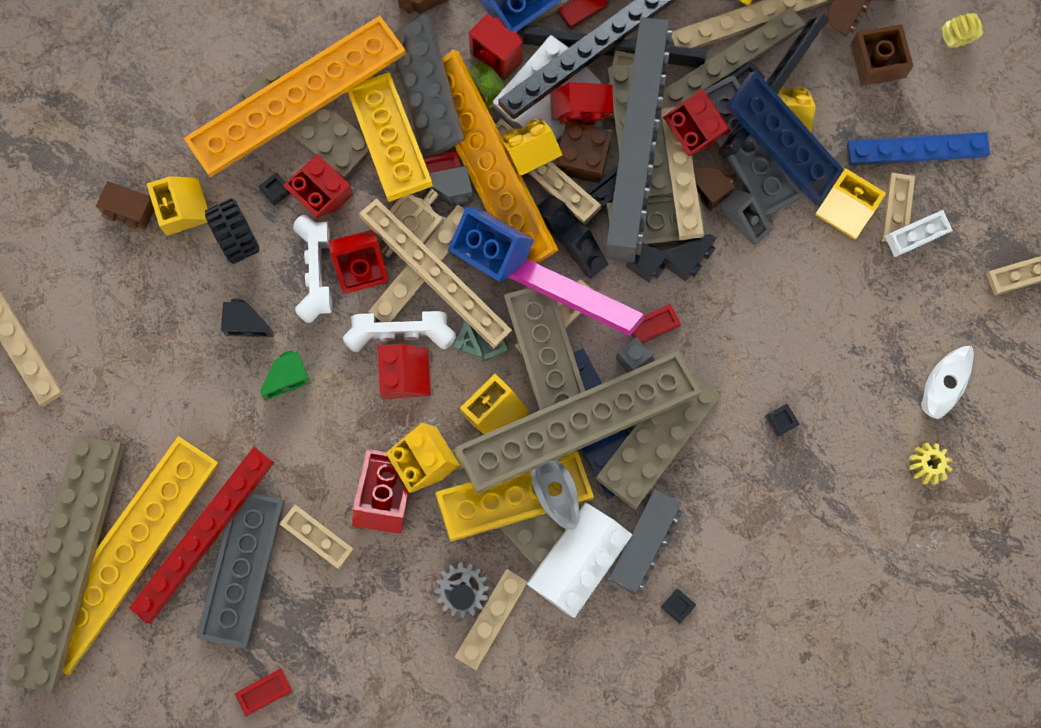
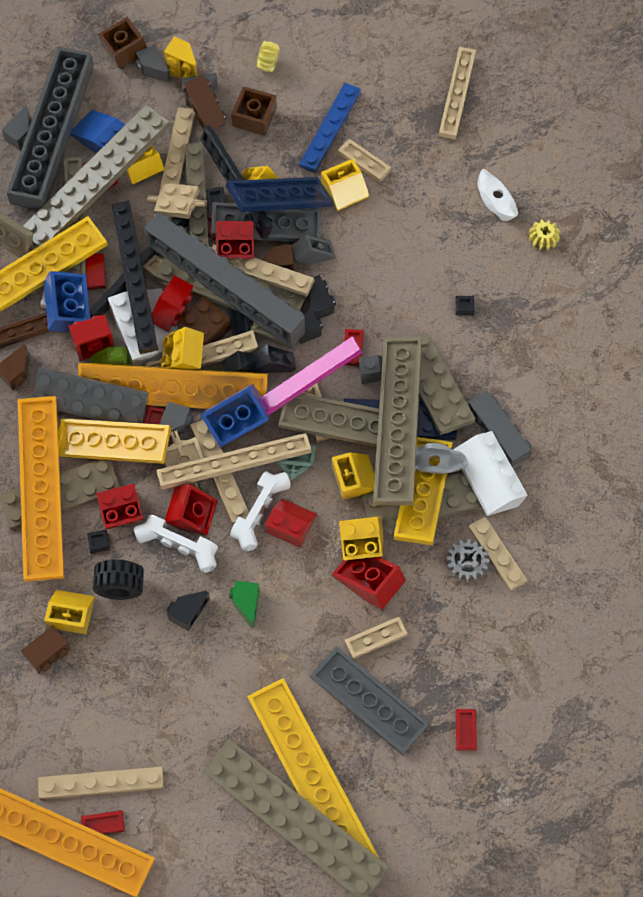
camera: 60 degrees left, 10 degrees down
(201, 535) = (331, 714): red plate -> none
(462, 597) = (474, 558): black tile -> none
(678, 606) = (552, 433): black tile -> none
(713, 38) = (177, 200): none -> tan plate
(918, 233) = (389, 157): white tile -> none

